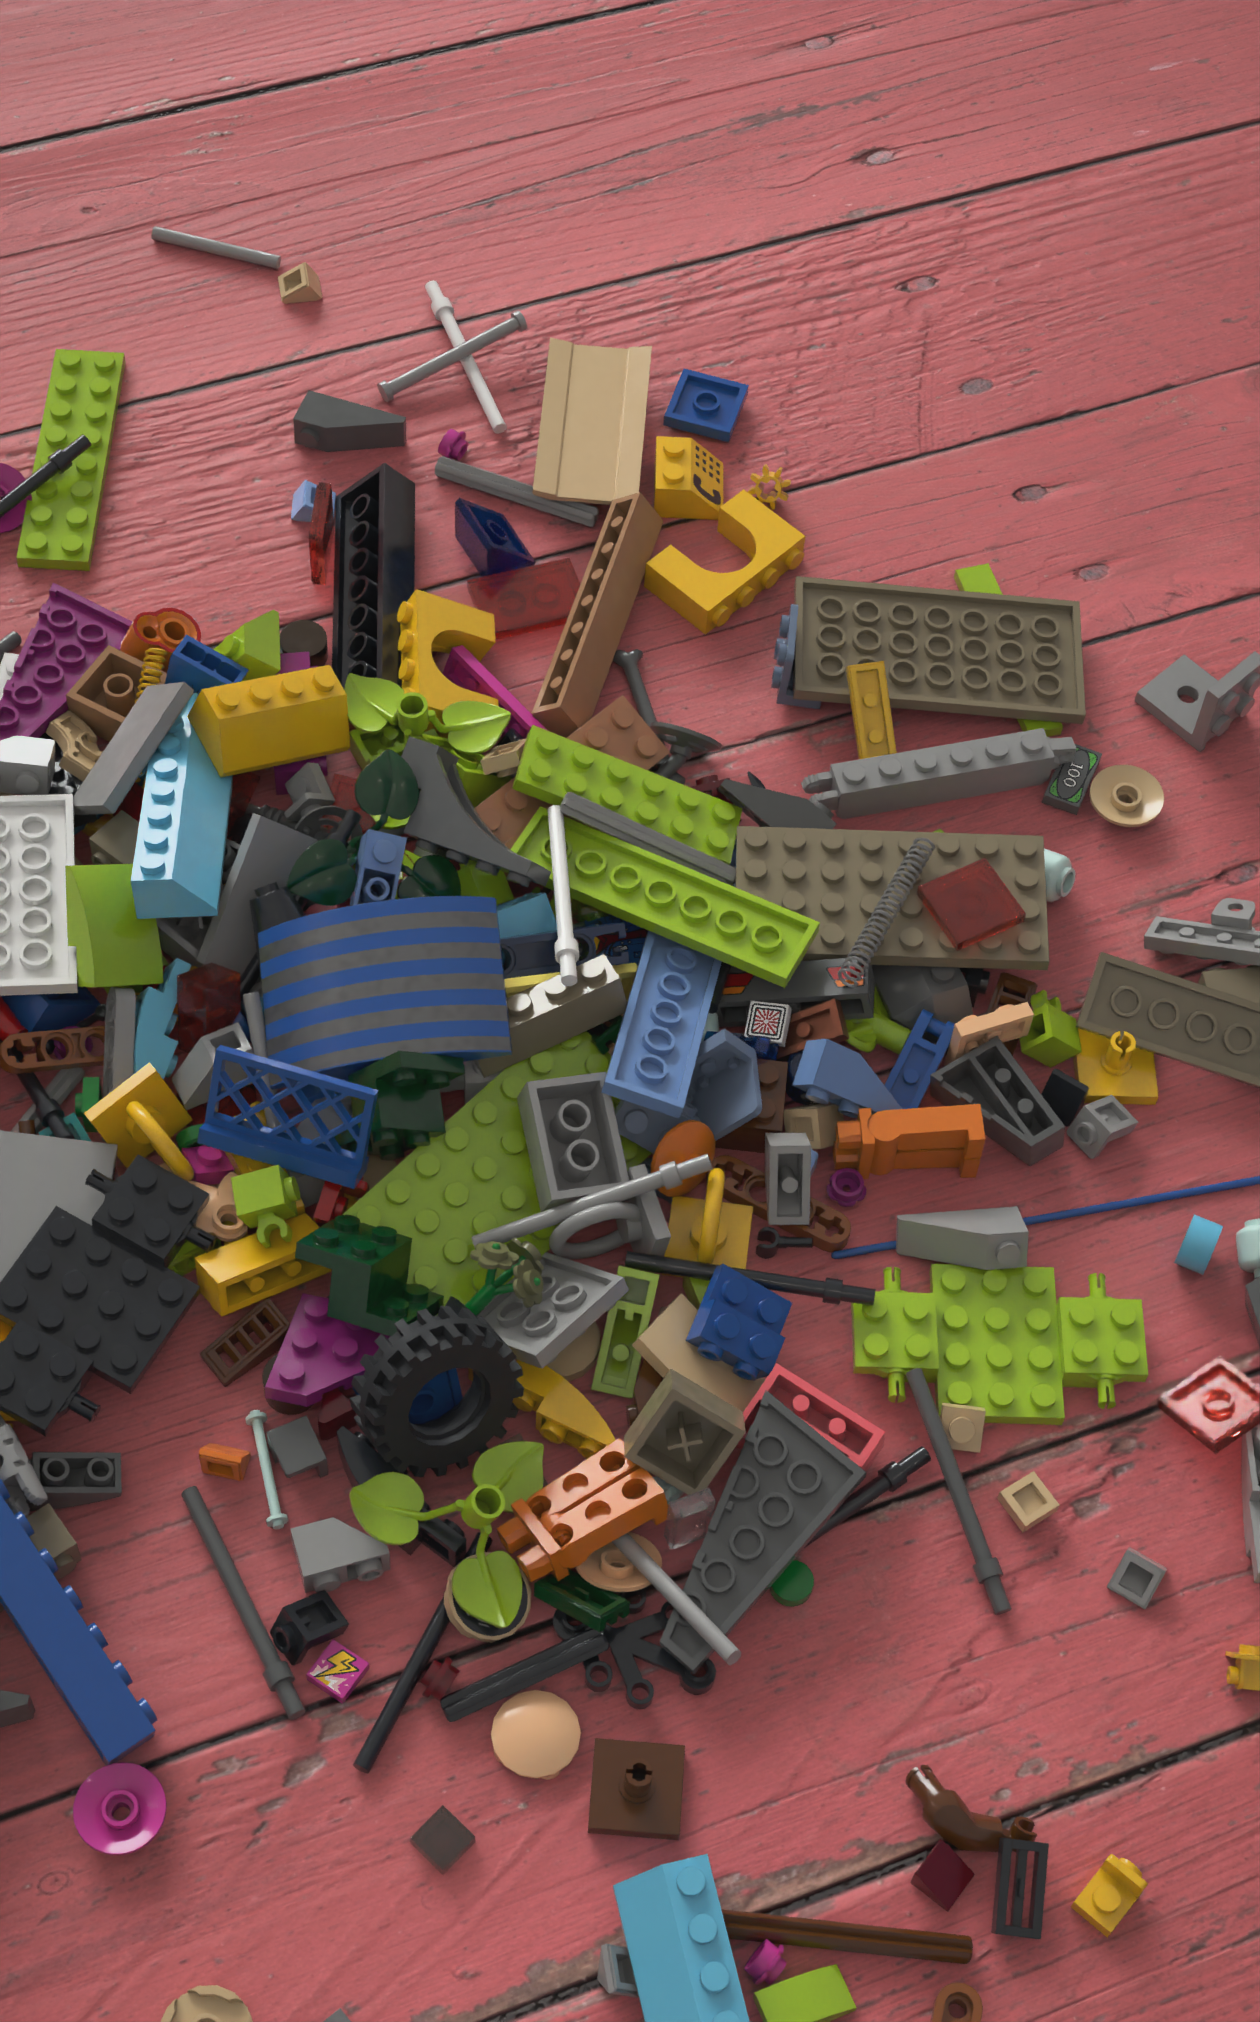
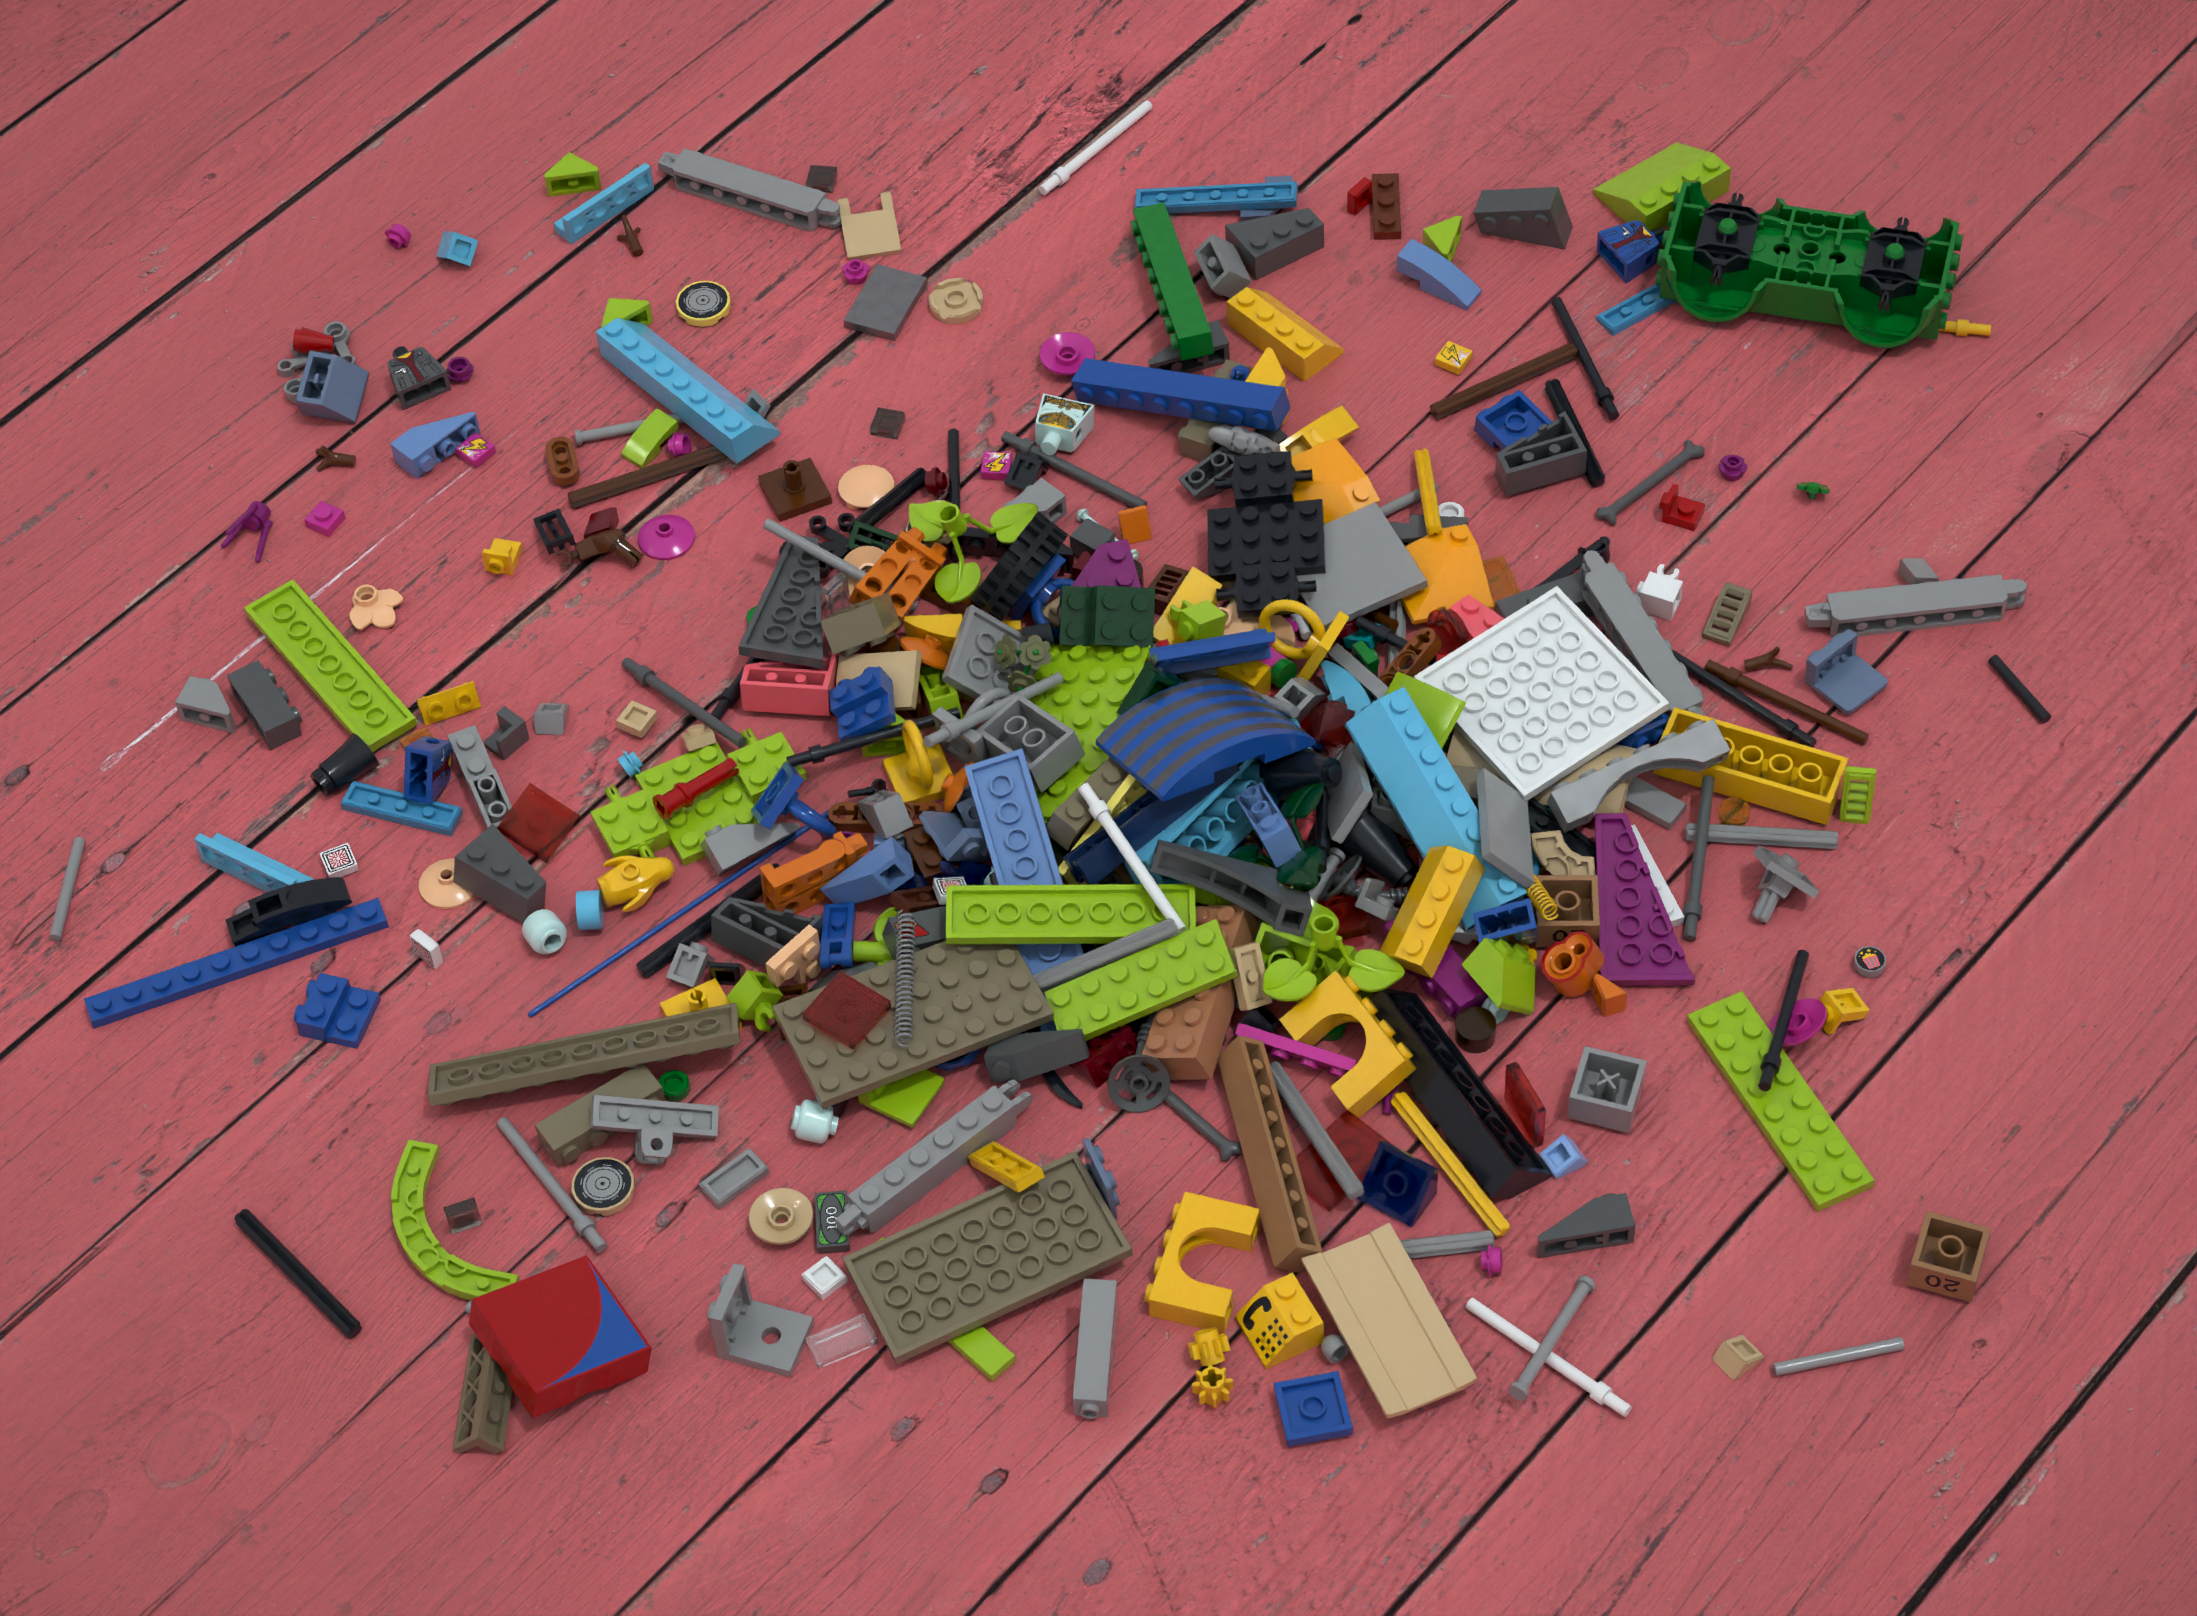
camera: 160 degrees right, 5 degrees down
(57, 251) = (1948, 1256): none -> medium nougat brick
(148, 599) = (1608, 996): none -> orange slope
(214, 1674) = (1062, 424): none -> light aqua torso
(229, 518) = (1607, 1089): none -> light grey brick
(425, 528) = (1450, 1164): none -> yellow axle
(538, 615) = (1316, 1133): none -> light grey axle
(614, 1385) = (930, 649): none -> orange dish
(649, 443) = (1334, 1348): none -> light grey hinge
(787, 455) = (1204, 1386): none -> yellow gear
(849, 1830) = (666, 537): none -> dark pink dish
(876, 528) = (1096, 1348): none -> light grey slope
(913, 1228) = (782, 798): none -> blue tile
(1022, 1322) = (684, 793): none -> red pin
(1051, 1175) = (694, 931): none -> black axle
(1064, 1434) = (630, 763): none -> medium azure plate
(1106, 730) = (824, 1278): none -> white tile
(1118, 664) = (841, 1340): none -> clear tile
(1130, 1258) = (633, 880): none -> yellow animal
(1155, 870) = (734, 1178): none -> light grey tile
(1210, 1569) = (509, 736): none -> dark grey panel

